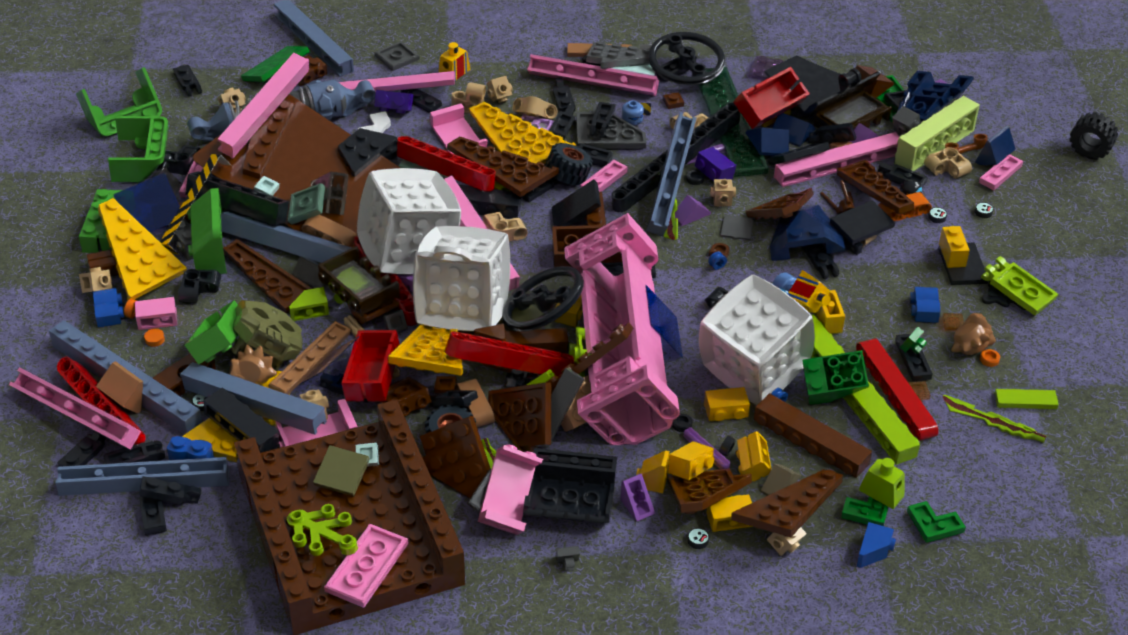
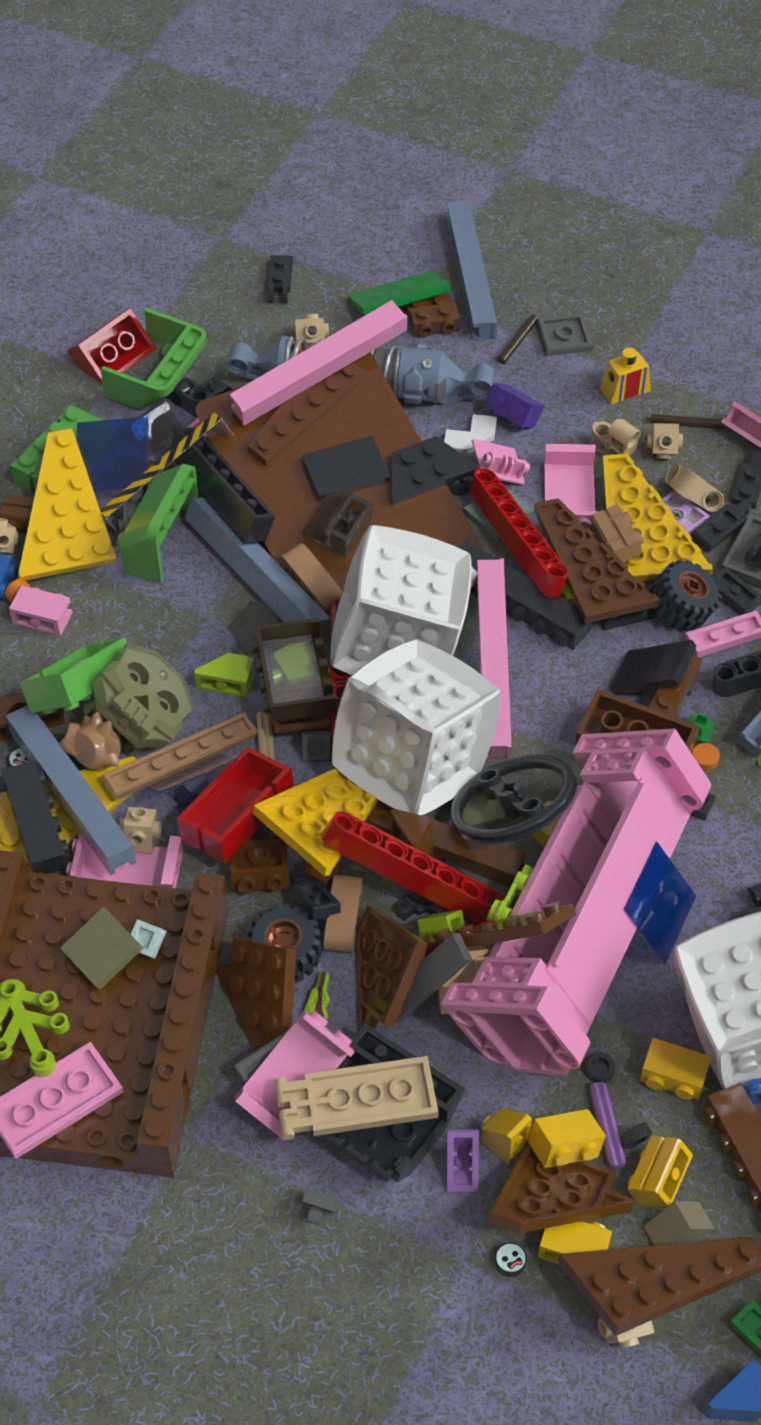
camera: 30 degrees right, 10 degrees up
(95, 150) = (113, 345): none -> red slope
(145, 103) = (189, 307): bright green windscreen -> none
(154, 337) = (22, 643): orange tile -> none
(198, 282) = (112, 584): black piece -> none
(267, 186) = (264, 483): light aqua plate -> none
(270, 278) = (205, 615): reddish brown wing -> none
(306, 203) = (300, 526): sand green tile -> none
(312, 163) = (345, 467): none -> black tile
(369, 64) = (517, 340): none -> dark brown bar
(407, 82) = (535, 380): bright pink tile -> none
(415, 132) = (501, 461): none -> bright pink hinge
(423, 100) = (556, 414): black hinge -> none
(506, 141) = (615, 531): none -> medium nougat brick
(512, 76) = (687, 421): none -> dark brown bar
(513, 227) = (541, 663): tan piece -> none
(558, 484) = (357, 1097): none -> tan hinge

